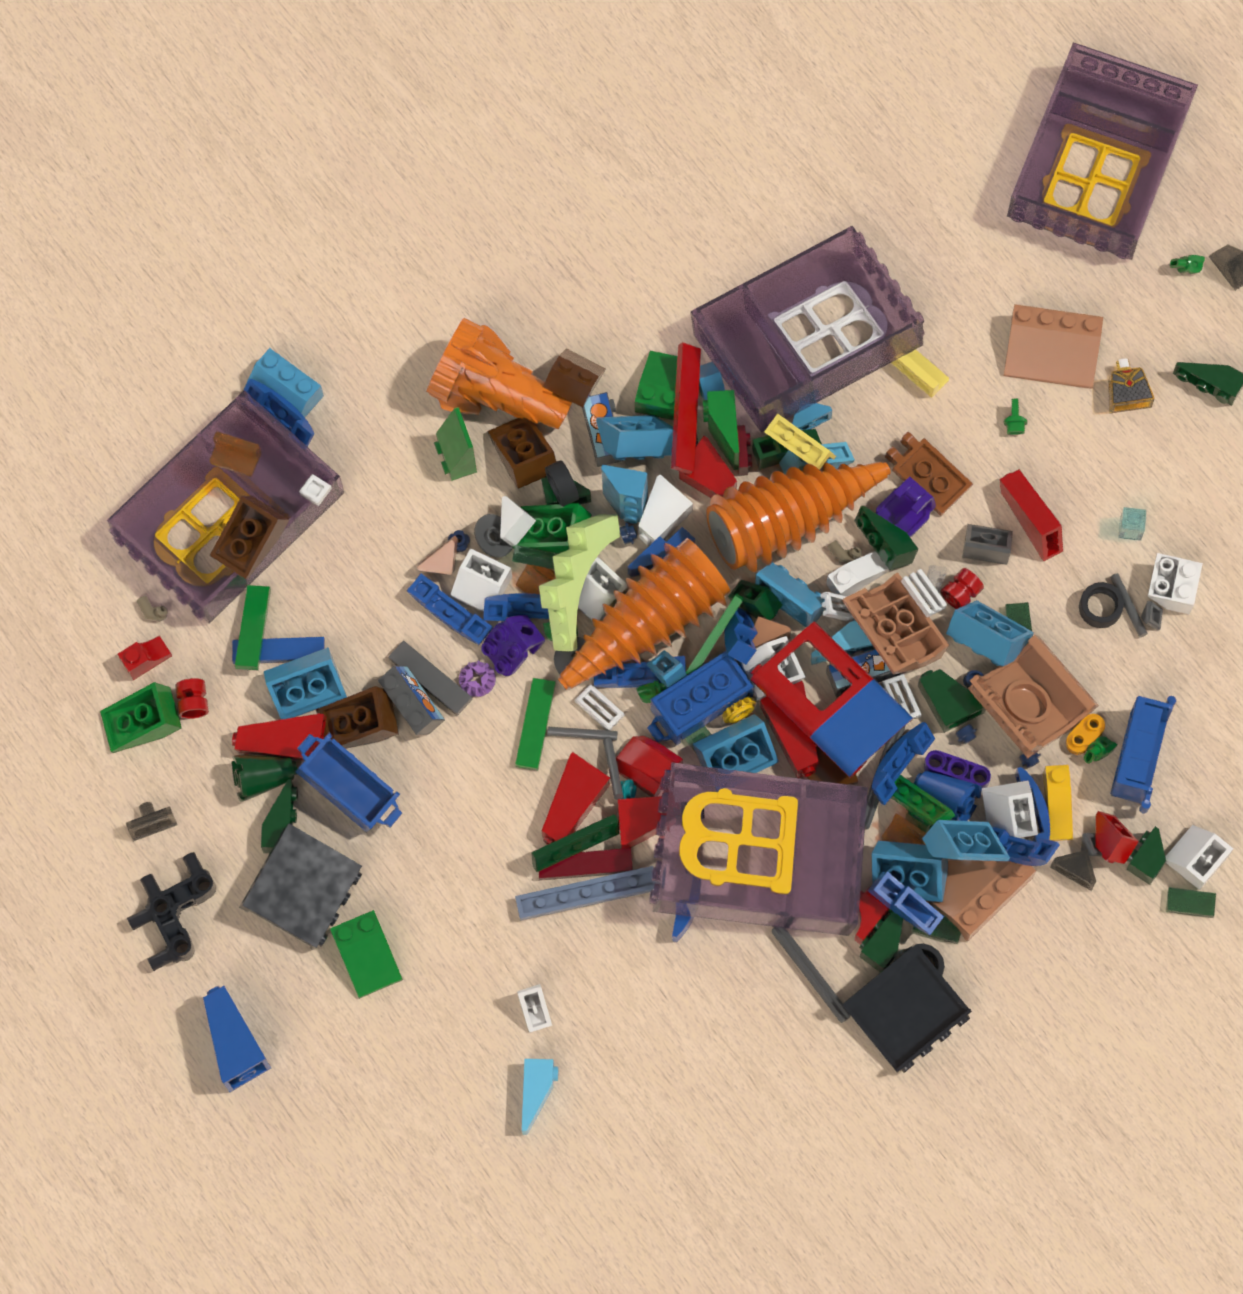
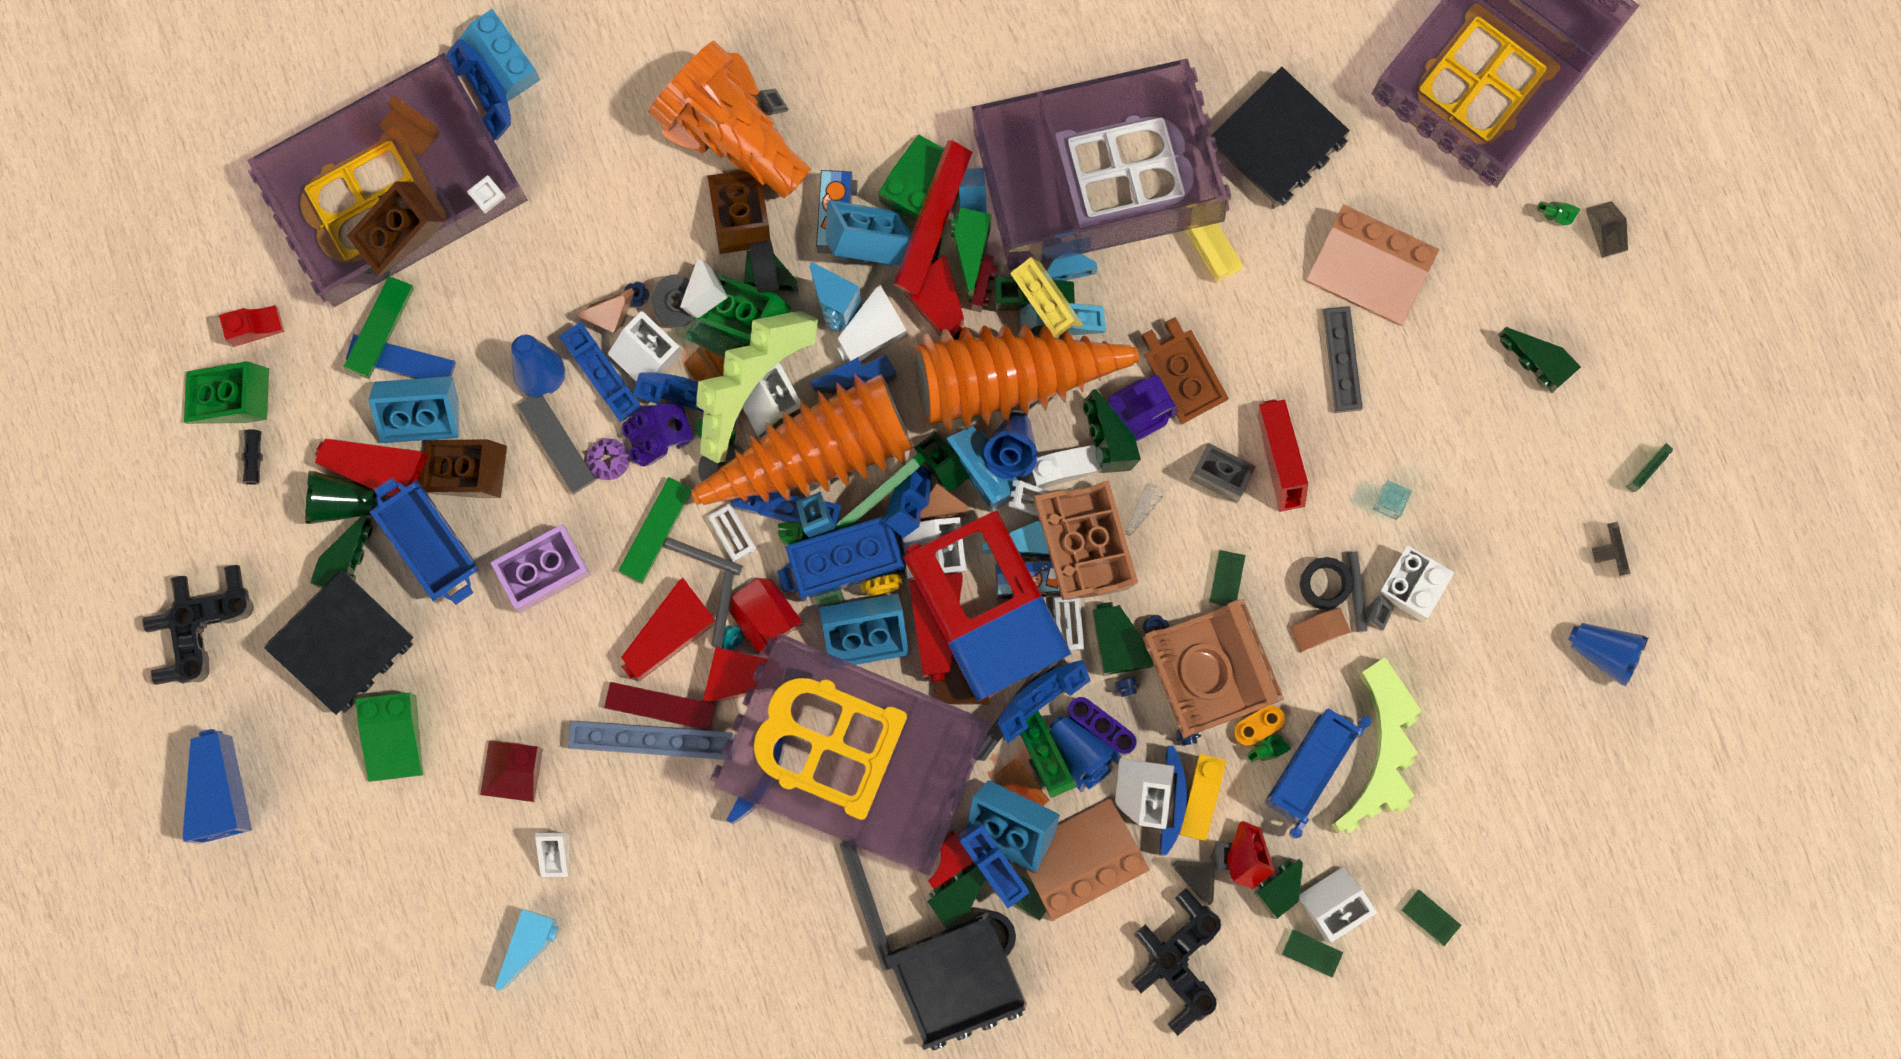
camera: 15 degrees right, 10 degrees up
(151, 821) = (203, 515): clear smoke tile -> none
(152, 613) = (274, 275): dark tan arm -> none
(177, 762) = (252, 457): none -> black pin
(192, 700) = (287, 389): red wheel -> none
(395, 619) = (536, 367): none -> blue cone
(411, 700) = (525, 464): dark grey brick -> none
(451, 779) = (540, 568): none -> lavender brick
(455, 447) = (663, 187): green slope -> none
(477, 952) = (511, 771): none -> dark red slope
(522, 357) = (771, 102): none -> dark grey slope
(573, 377) = (819, 143): reddish brown slope -> none
(575, 843) = (654, 682): dark green tile -> none
(628, 533) = (825, 342): dark blue plate -> none
(811, 569) = (1012, 448): none -> blue cone
(842, 555) = (1059, 439): dark tan arm -> none
(926, 590) = (1139, 513): white tile -> none
(946, 268) = (1280, 137): none -> black panel
(964, 841) = (1078, 821): dark azure slope -> none
(965, 585) = (1177, 518): red wheel -> none
(988, 633) = (1188, 579): dark azure slope -> none
(1015, 423) = (1299, 342): green piece -> none
(1026, 851) = (1135, 841): blue slope -> none
(1054, 427) = (1342, 359): none -> dark grey tile
(1089, 952) = (1179, 976): none -> black pin
(1108, 643) = (1320, 629): none -> nougat slope
(1128, 388) = (1441, 339): torso -> none
(1191, 690) = (1385, 785): none -> yellowish green arch

